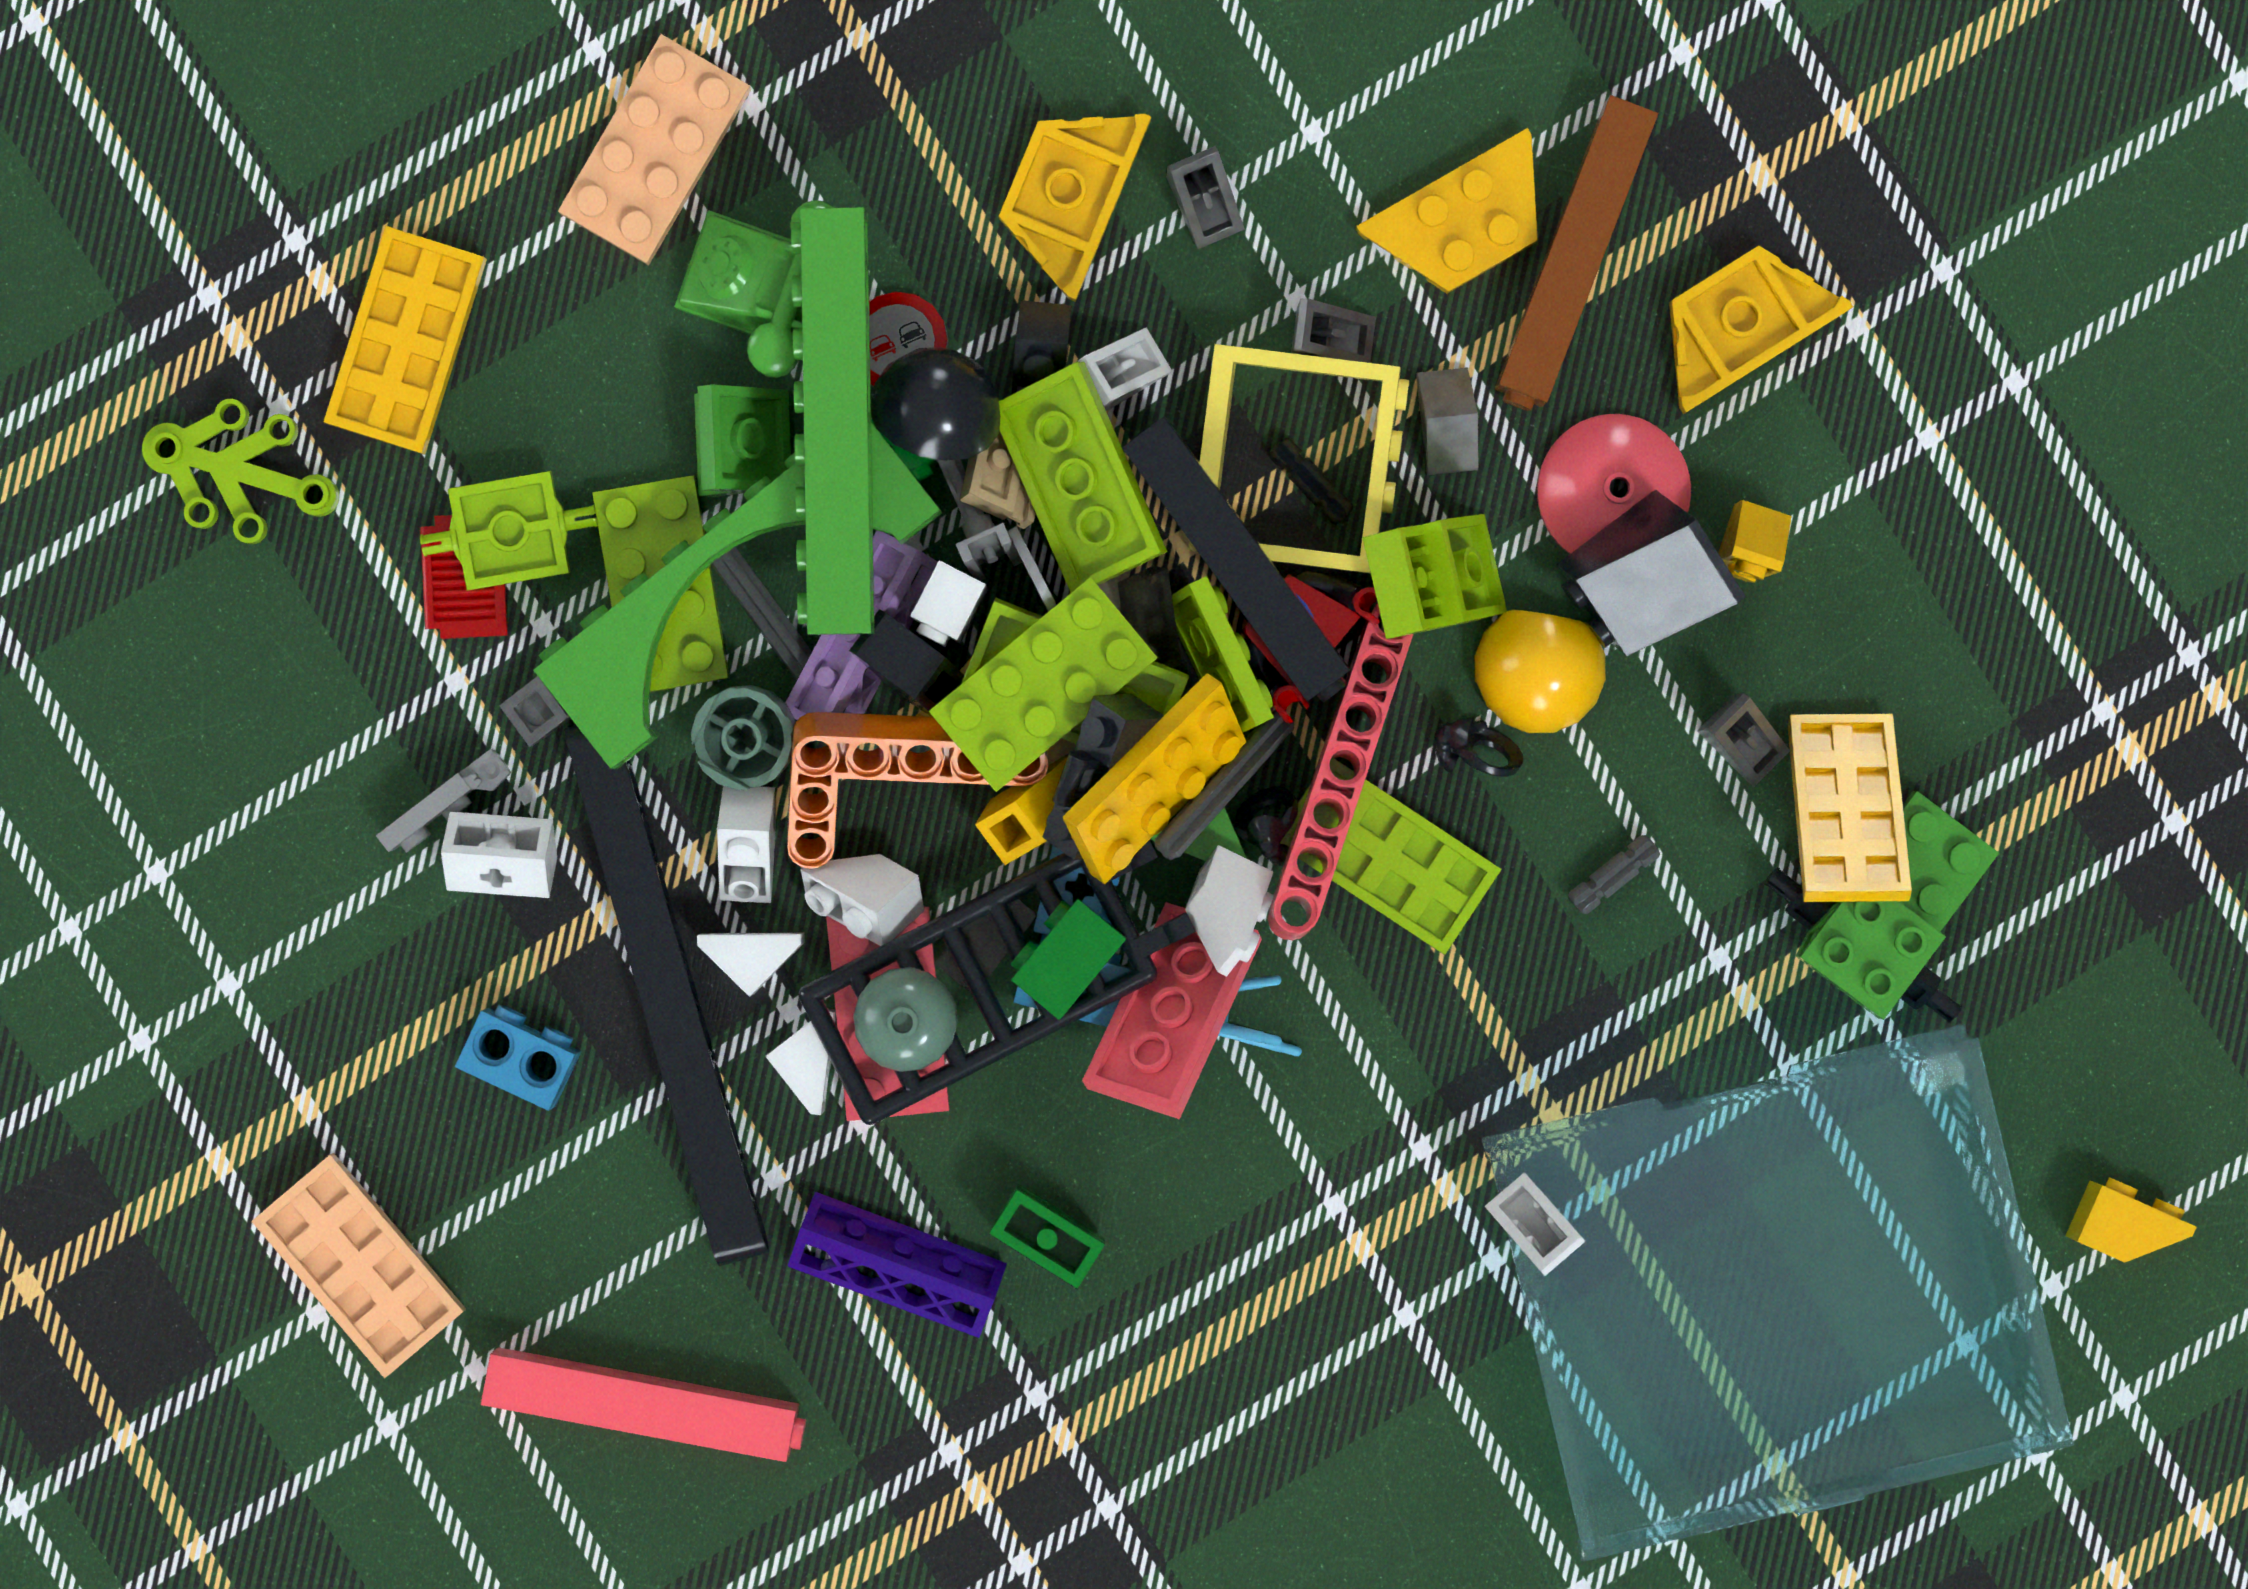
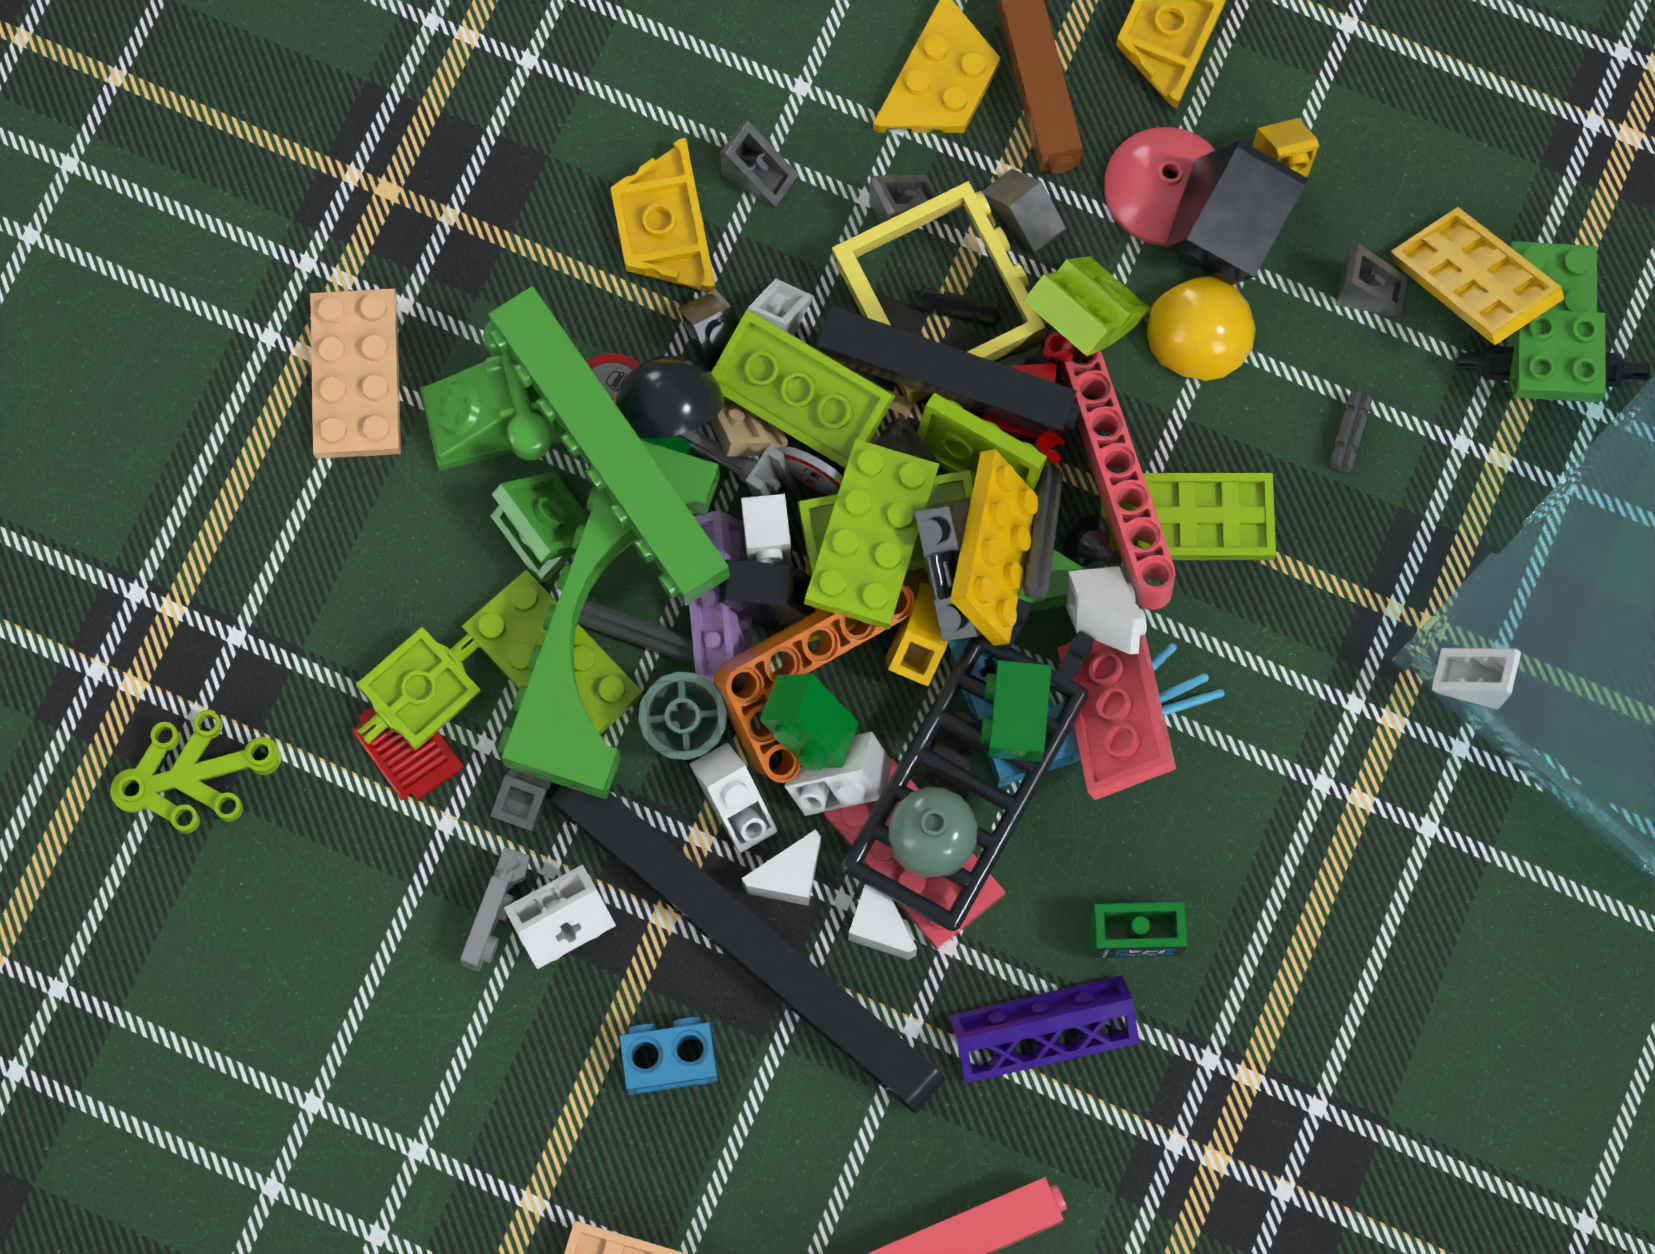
camera: 35 degrees left, 15 degrees down
(405, 340) = (259, 607): yellow plate -> none
(856, 831) = (809, 721): none -> green brick
(1466, 734) = (1191, 403): black piece -> none

